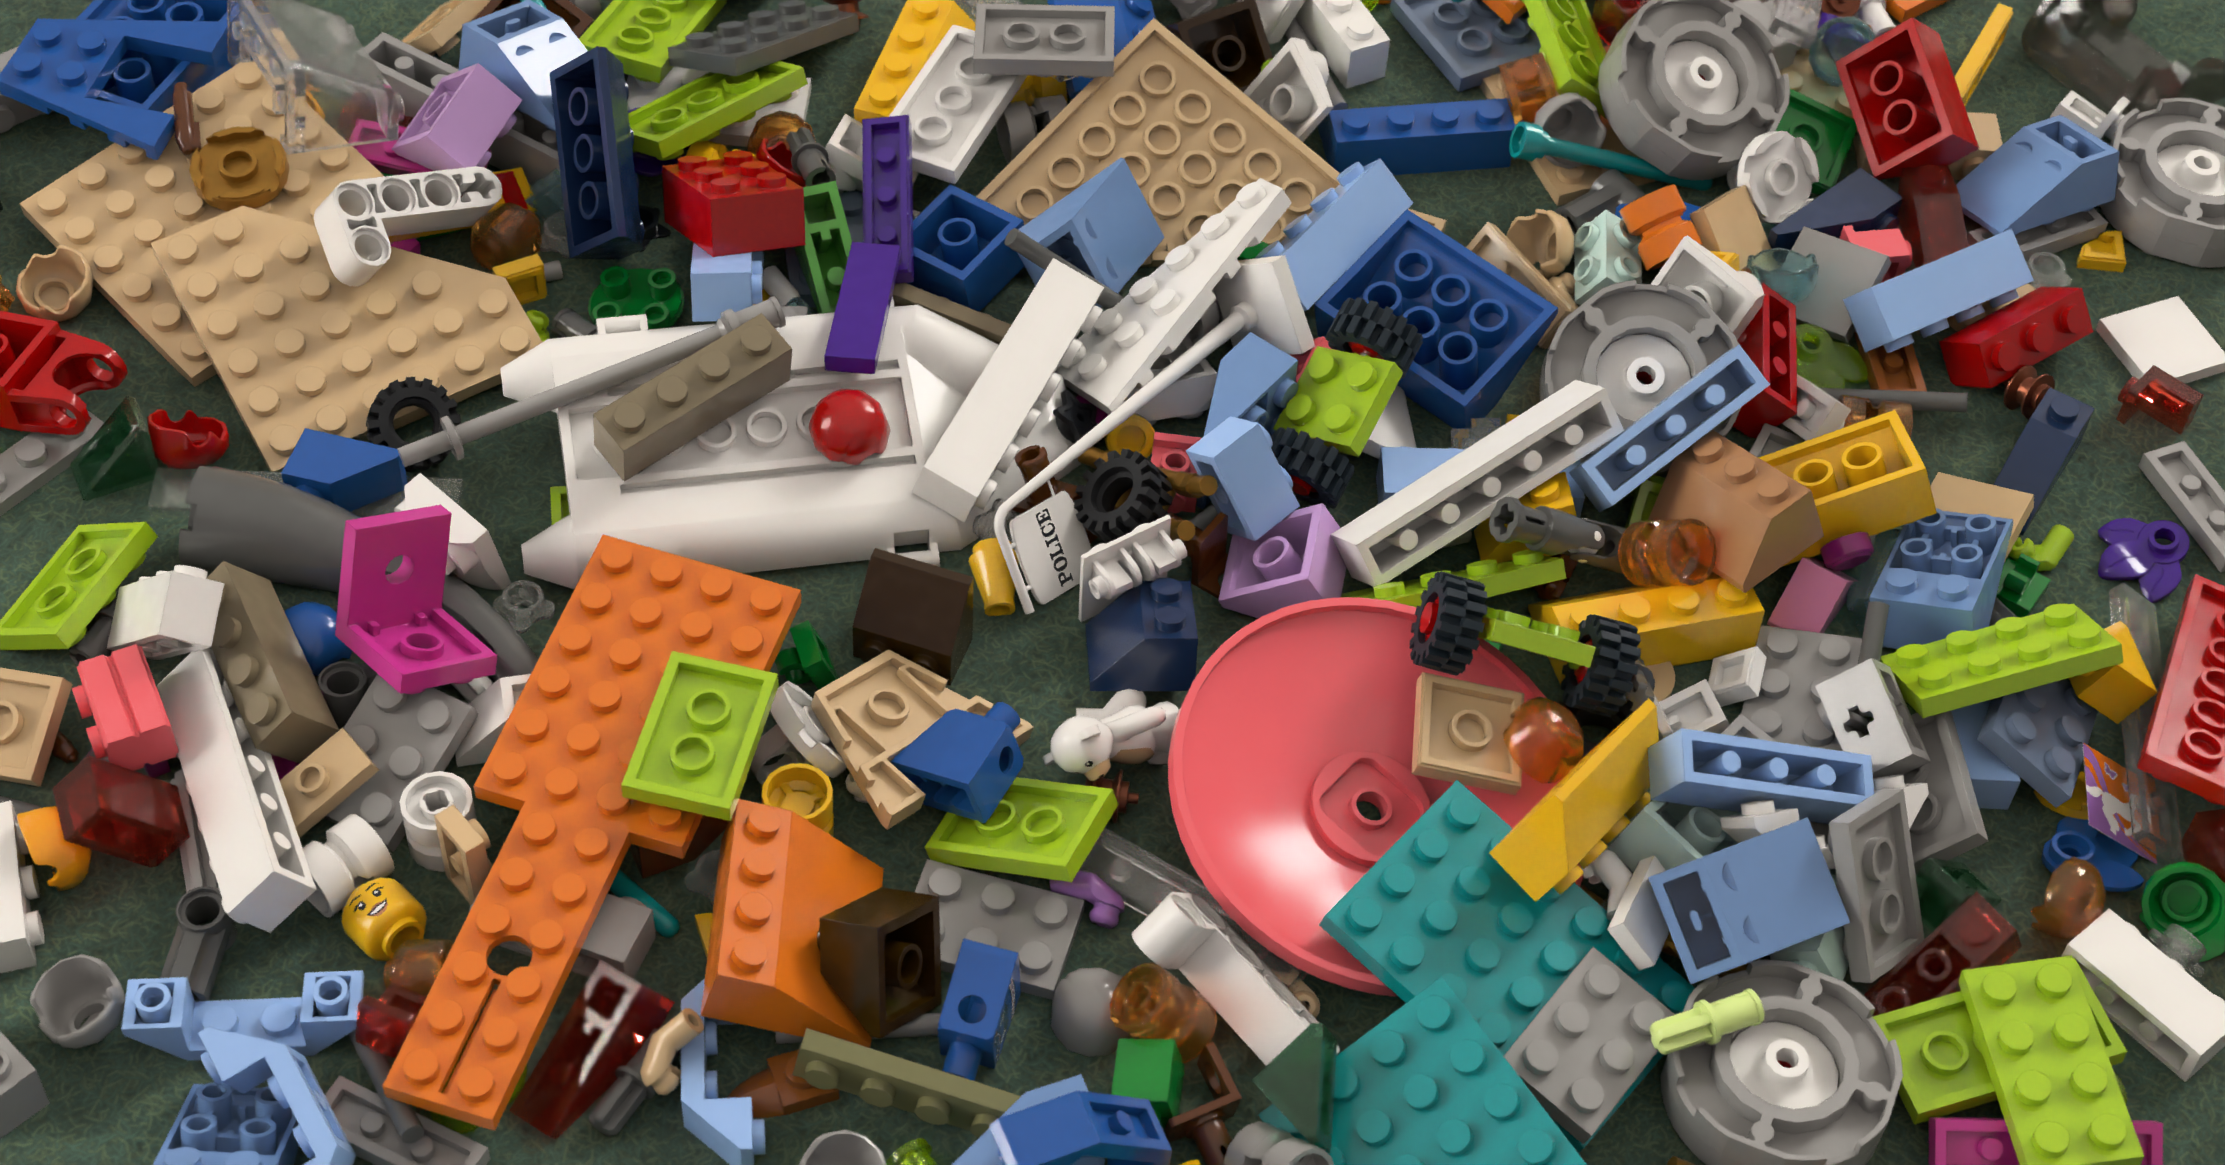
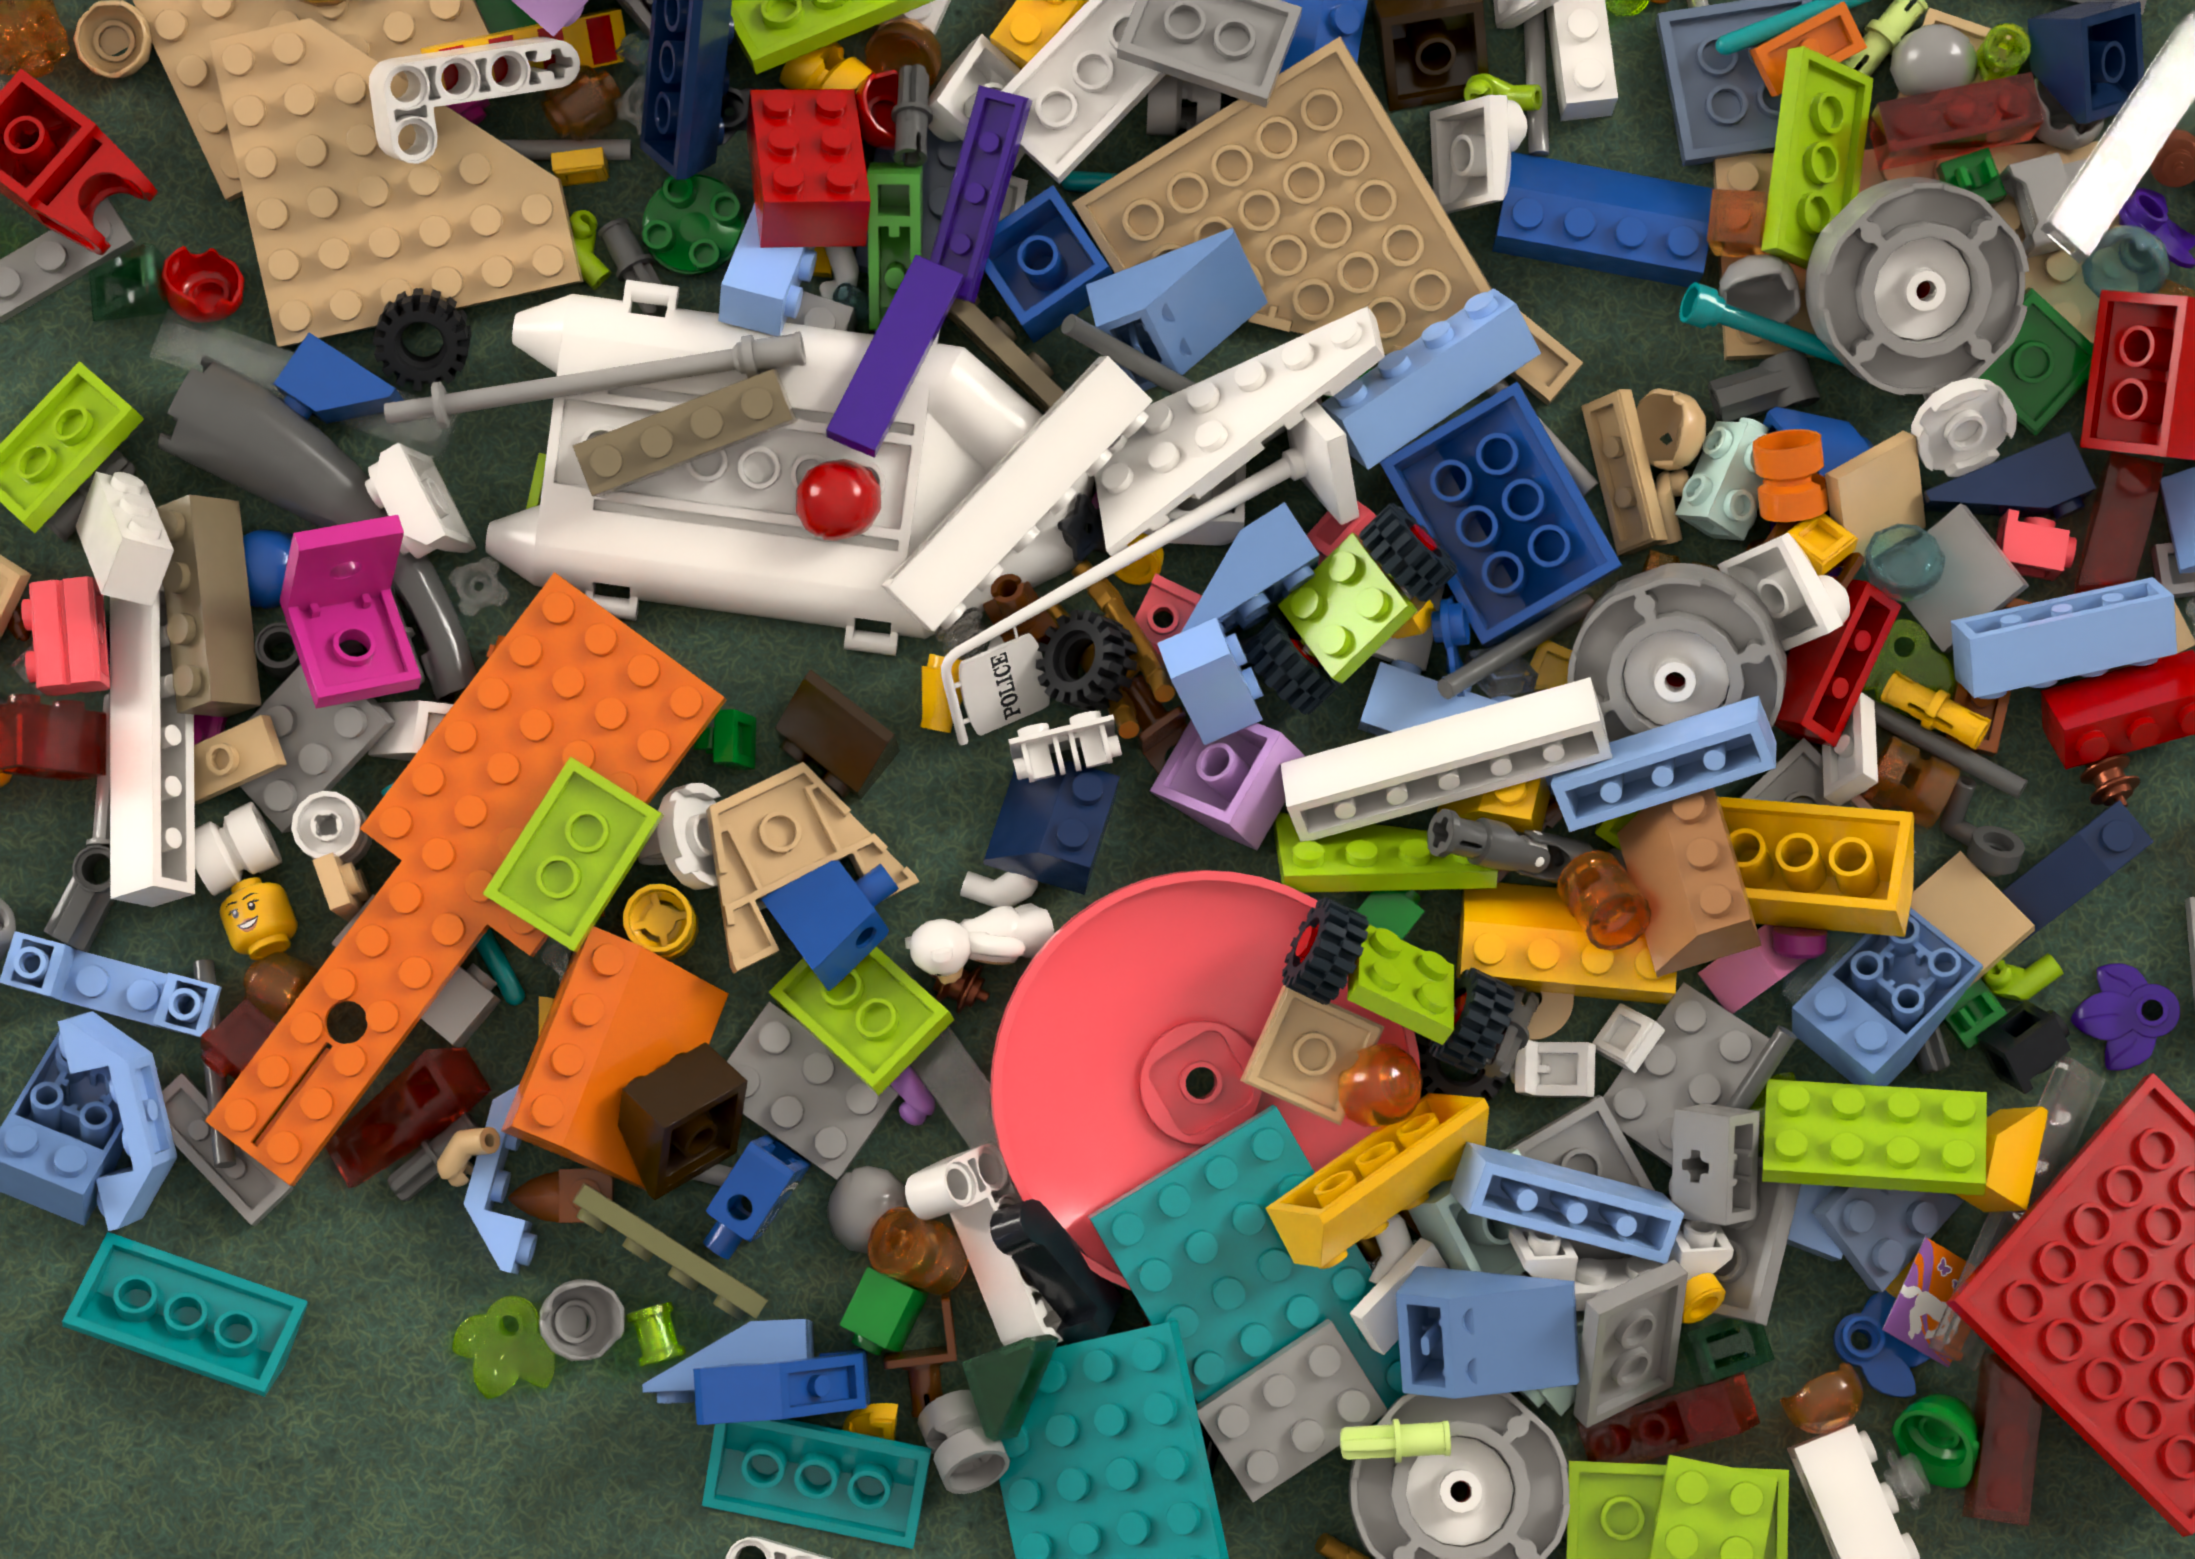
camera: 25 degrees right, 30 degrees up
(1305, 979) = (1056, 1269): none -> black leg
(1396, 406) = (1419, 622): none -> yellow tile
(1434, 398) = (1452, 628): none -> blue plate
(1492, 405) = (1515, 647): none -> dark grey bar
(1898, 370) = (1935, 710): none -> yellow pin
(1923, 835) = (1702, 1297): none -> yellow tile
(1961, 464) = (1989, 847): none -> dark grey plate
(2077, 580) = (2024, 1044): none -> black brick

